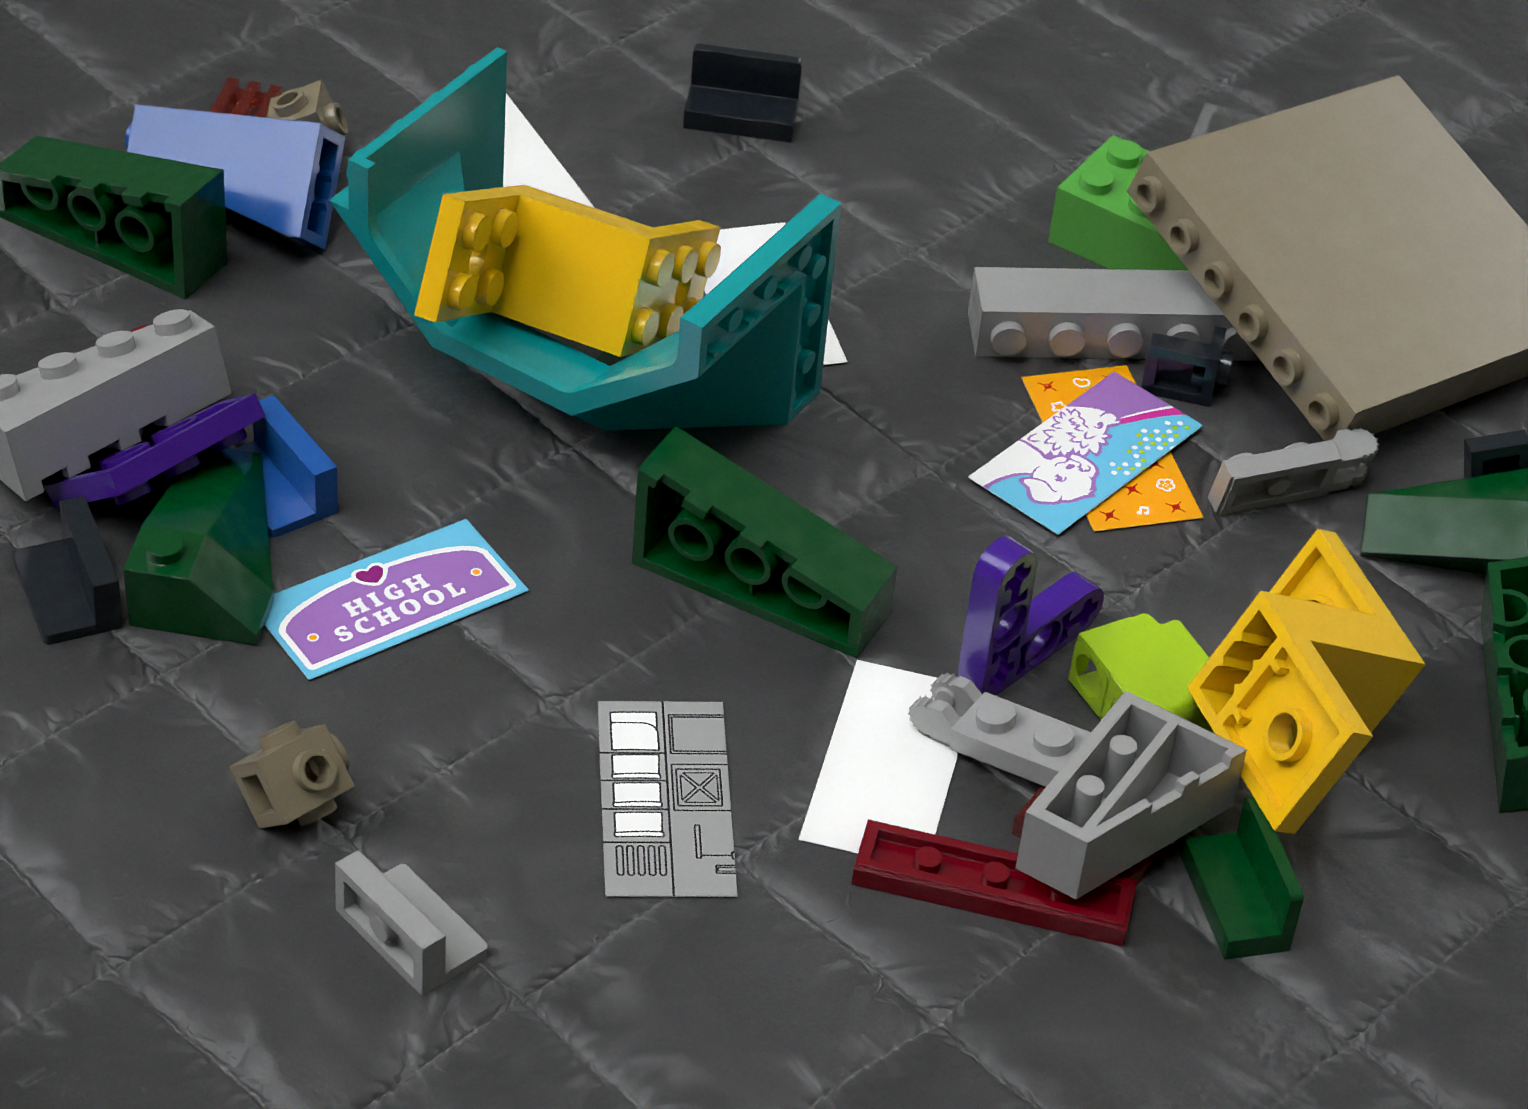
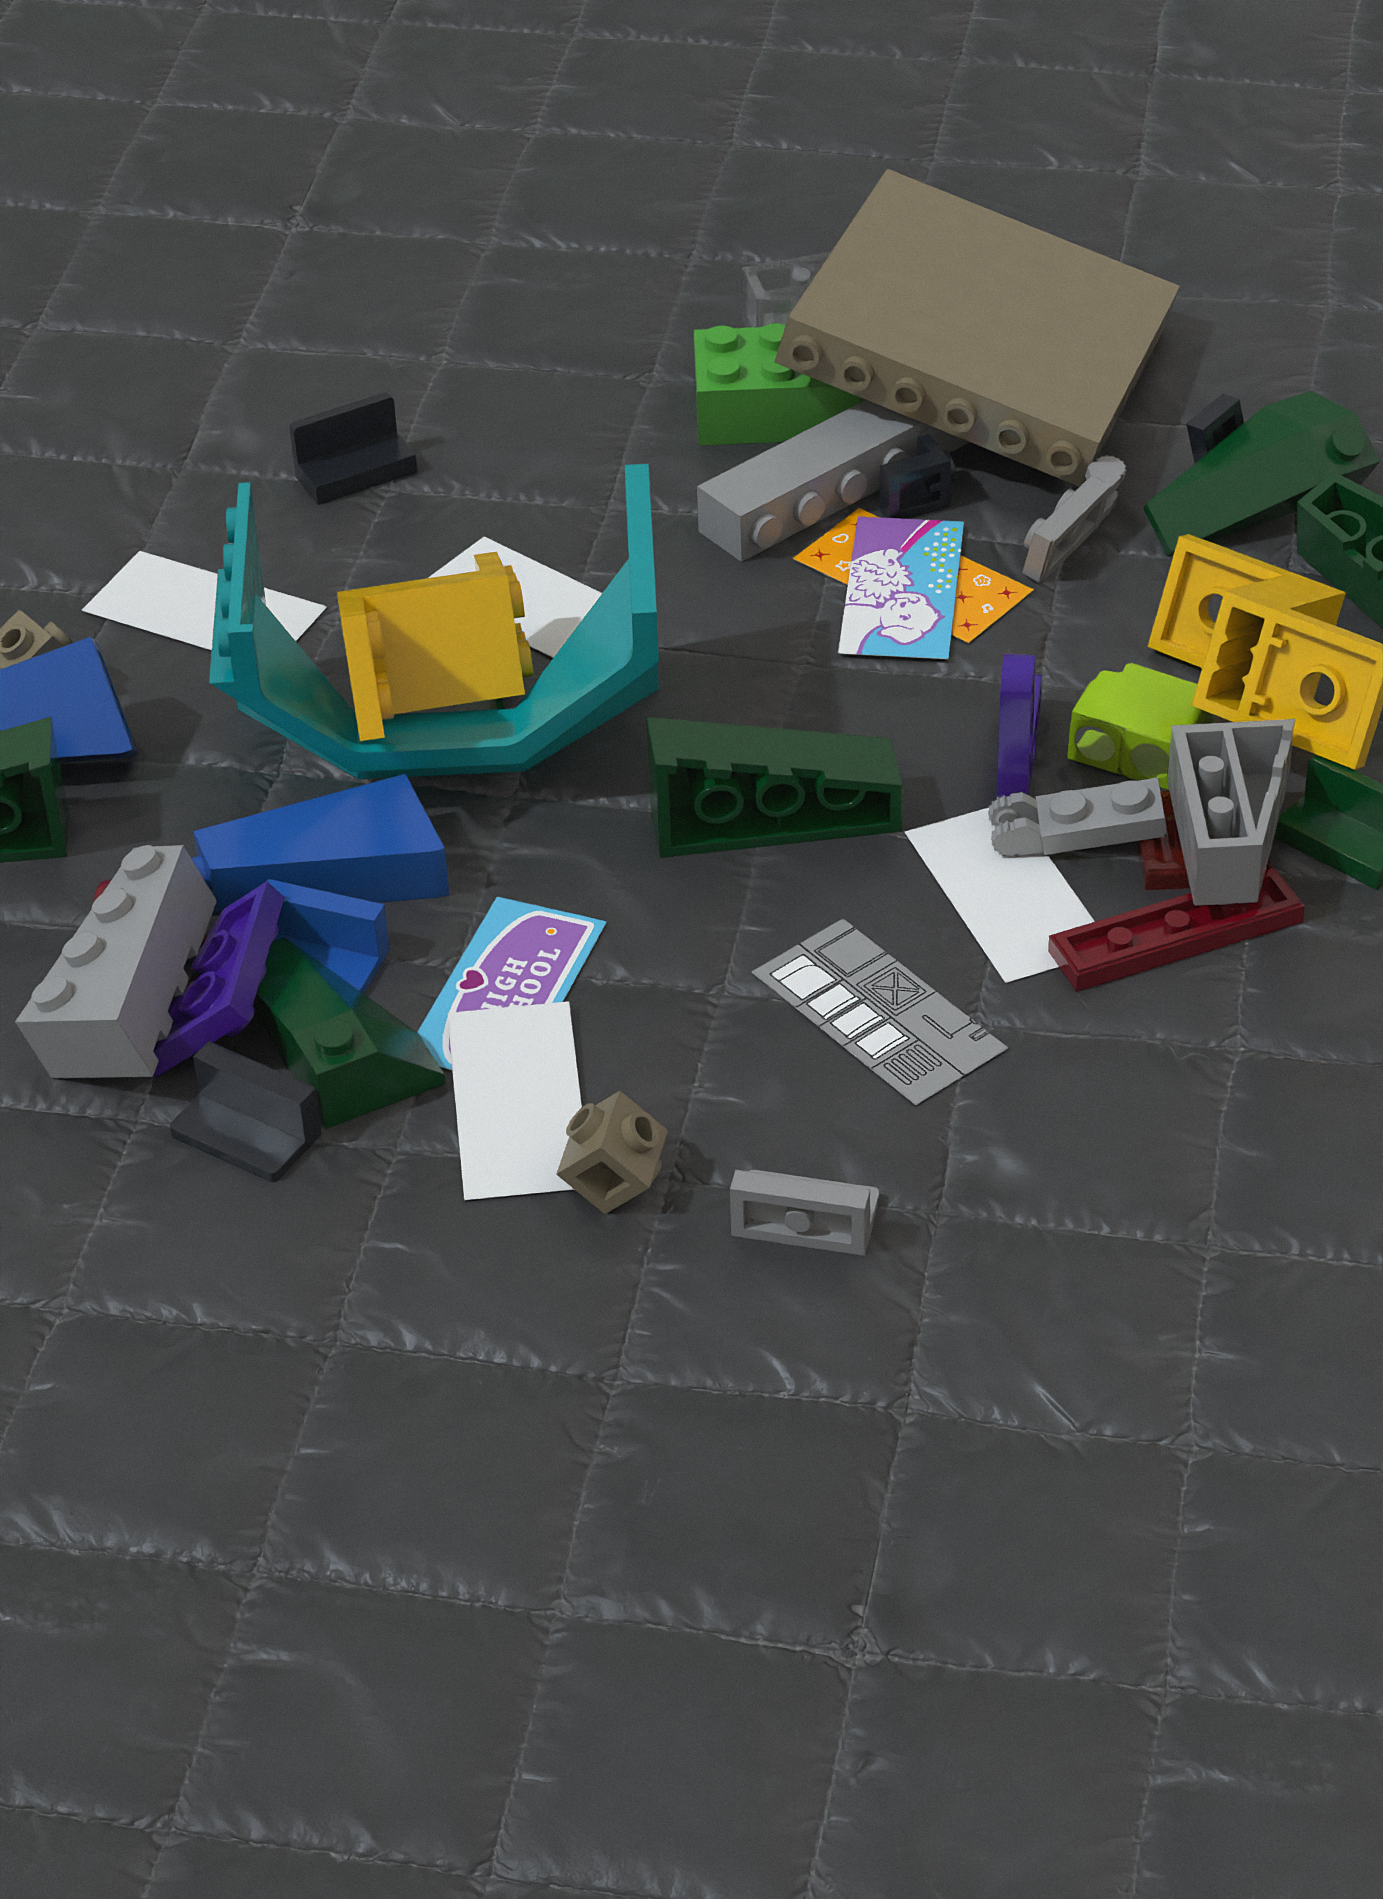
camera: 30 degrees left, 0 degrees up
(305, 672) = (513, 1097): none -> white sticker
(363, 402) = (351, 843): none -> blue slope

